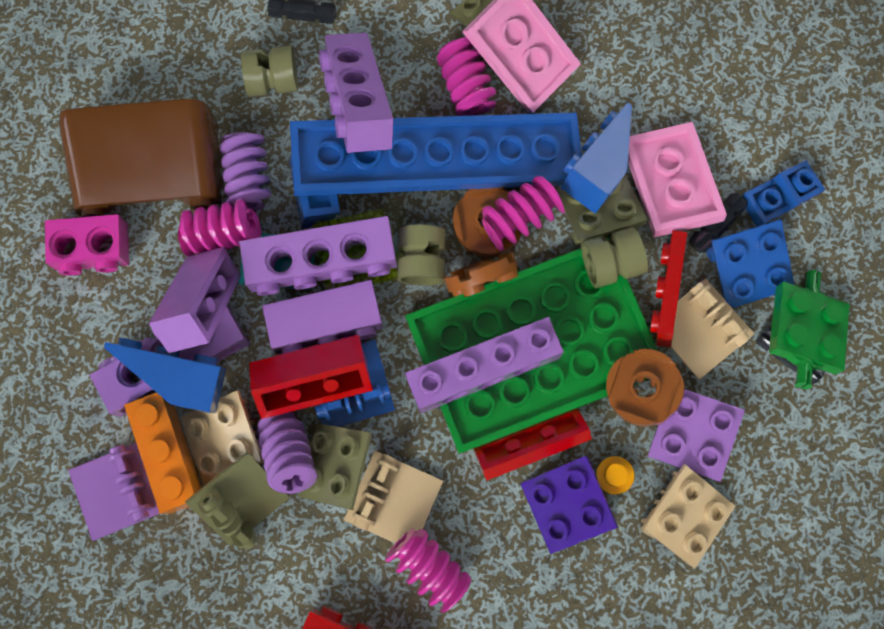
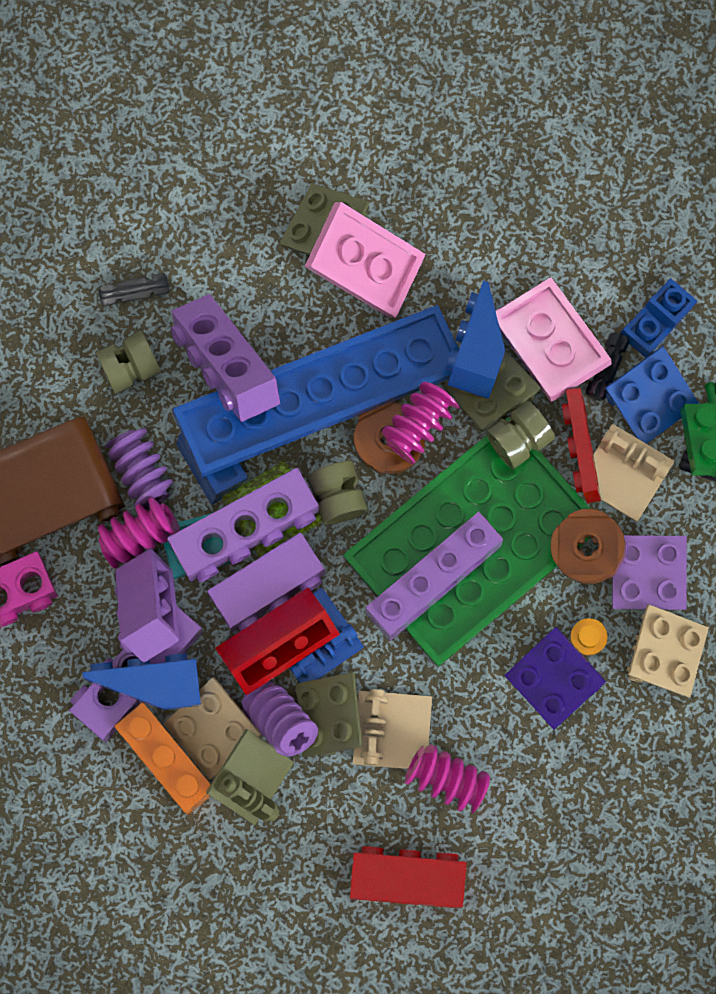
camera: 20 degrees left, 0 degrees up
(114, 491) = (129, 811): medium lavender hinge -> none
(463, 78) = (319, 306): dark pink piece -> none
(472, 277) = (395, 496): dark orange plate -> none
(532, 444) = (503, 634): red plate -> none

